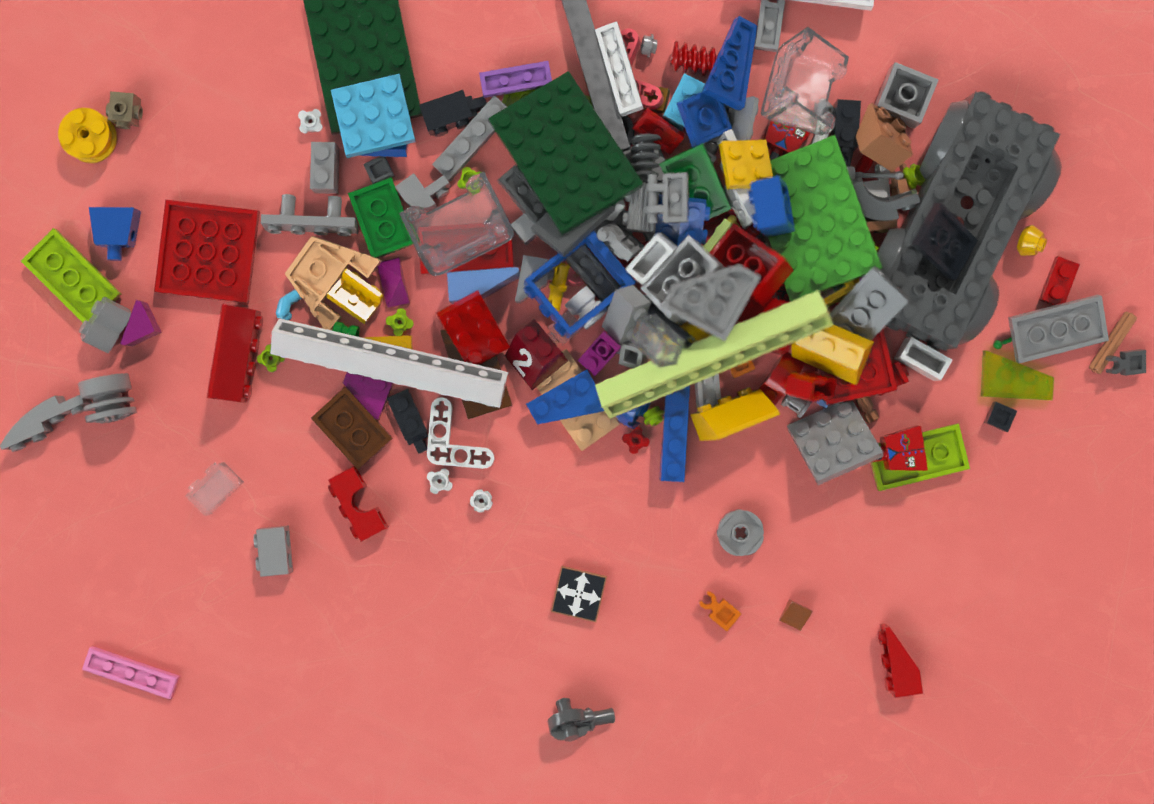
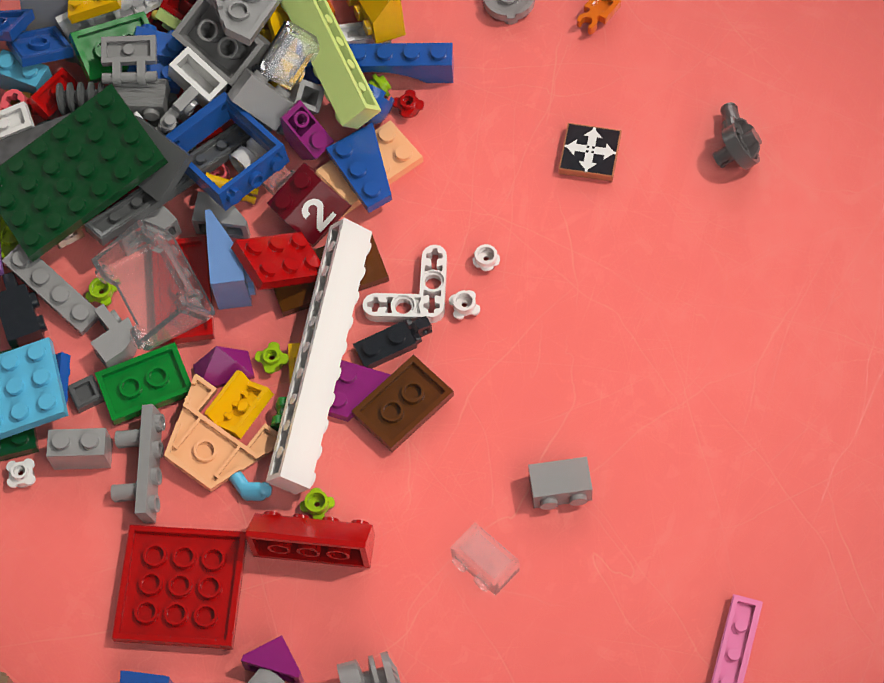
camera: 85 degrees left, 25 degrees down
(345, 488) = (478, 404): red arch -> none

